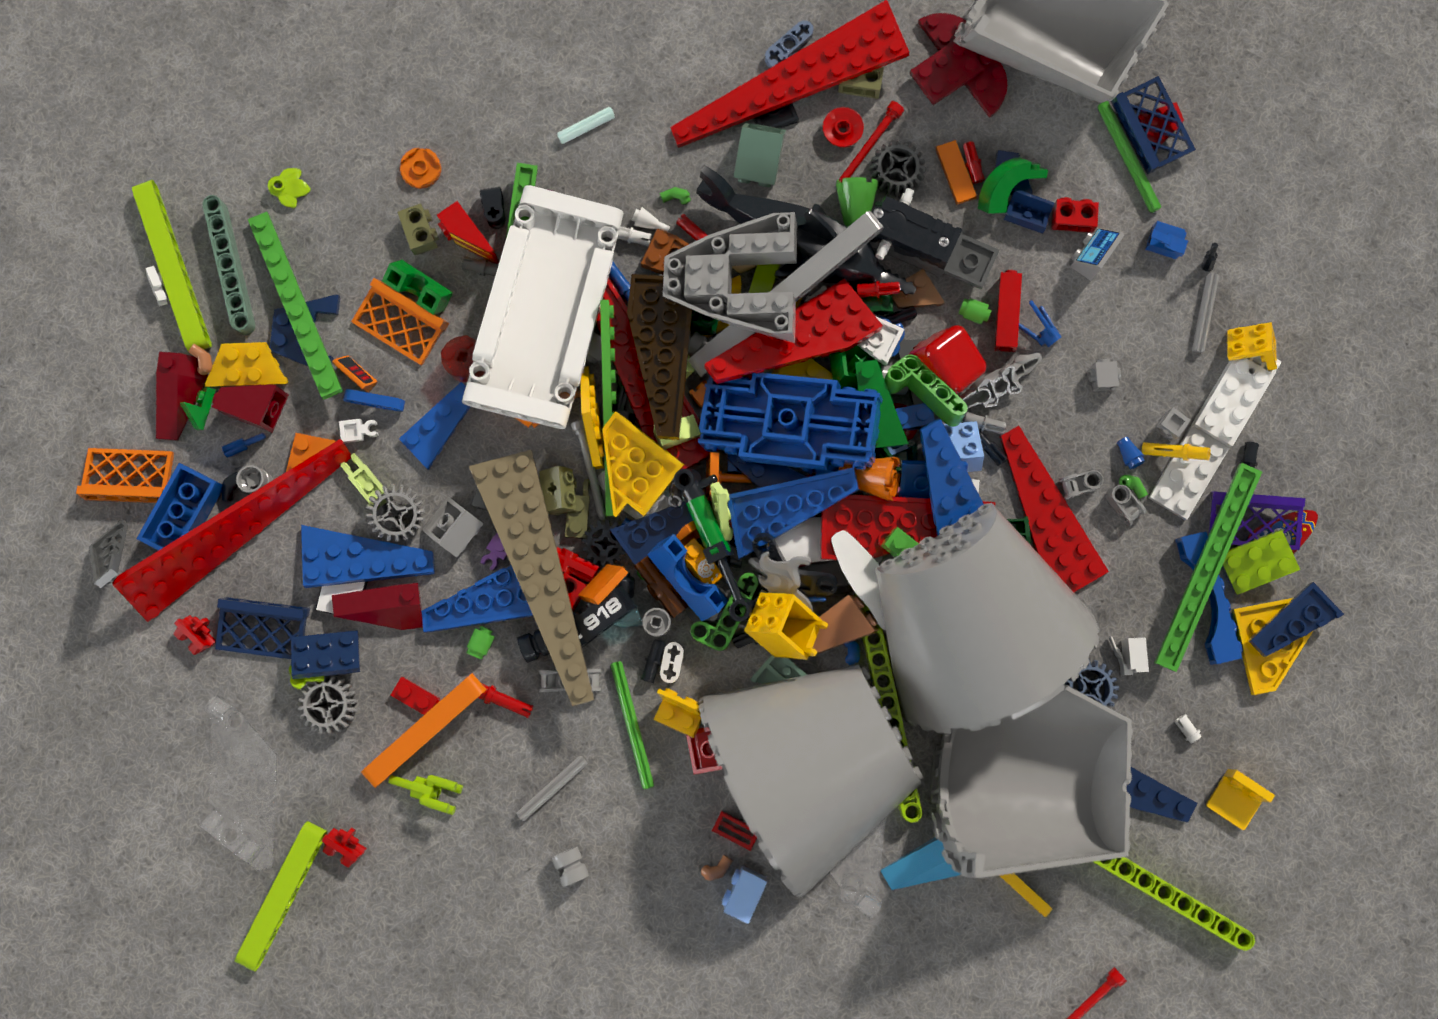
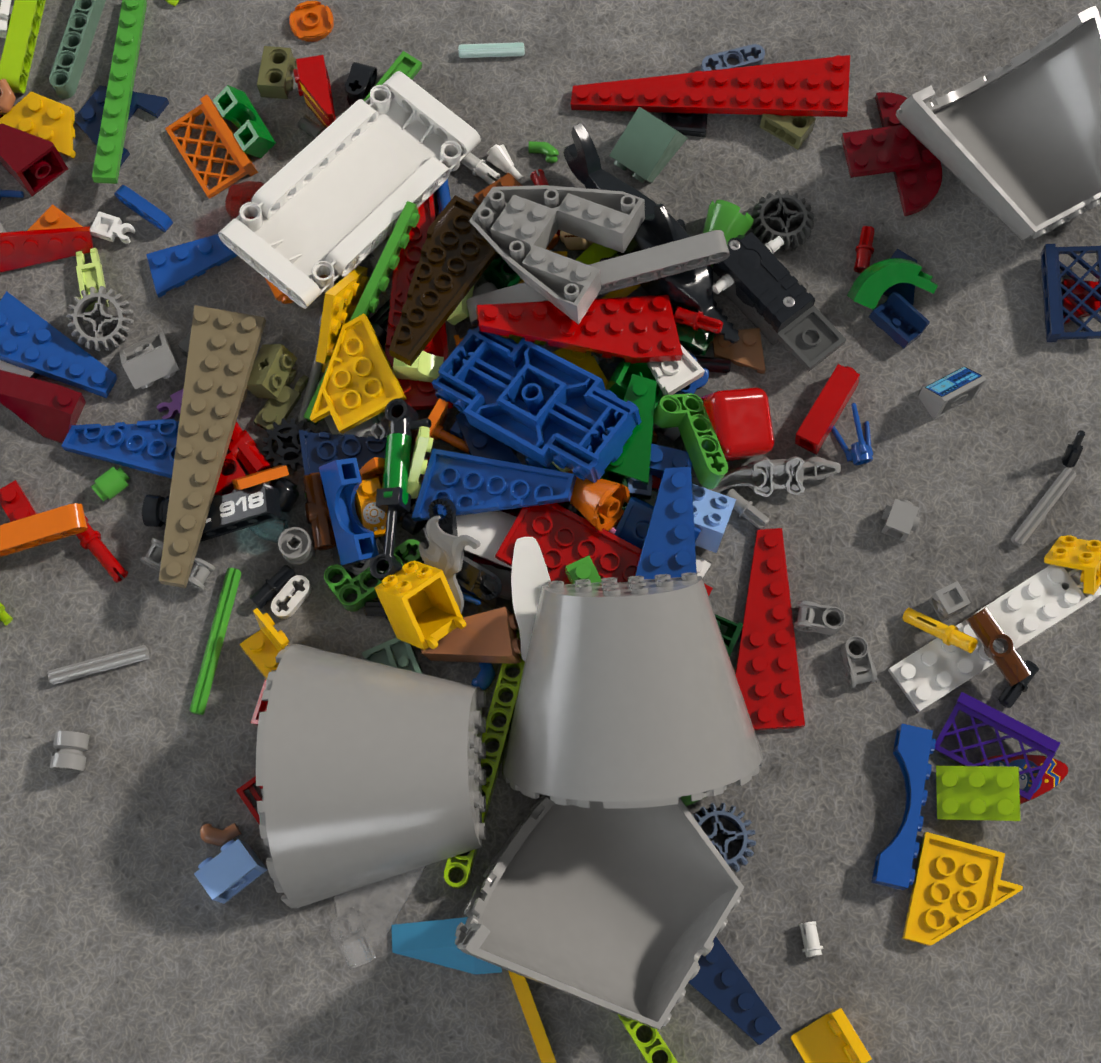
camera: 25 degrees right, 10 degrees down
(355, 373) = (141, 175): slope -> none
(845, 118) = (749, 150): red dish -> none
(894, 111) = (806, 166): red piece -> none
(956, 172) = (842, 252): orange tile -> none
(974, 310) = (792, 392): bright green brick -> none
(993, 450) = (741, 539): black axle -> none
(1075, 221) = (944, 351): red brick -> none
(1129, 156) = (1034, 315): bright green axle -> none
(1130, 453) = (889, 613): blue cone -> none
(1133, 483) = (879, 647): bright green arm -> none
(1134, 655) = (787, 828): white piece -> none
(1167, 240) = (1035, 413): blue piece -> none
(1208, 567) = (914, 768): bright green plate -> none
(1215, 438) = (1009, 661): none -> reddish brown piece
(1298, 618) = (994, 875): dark blue wing -> none

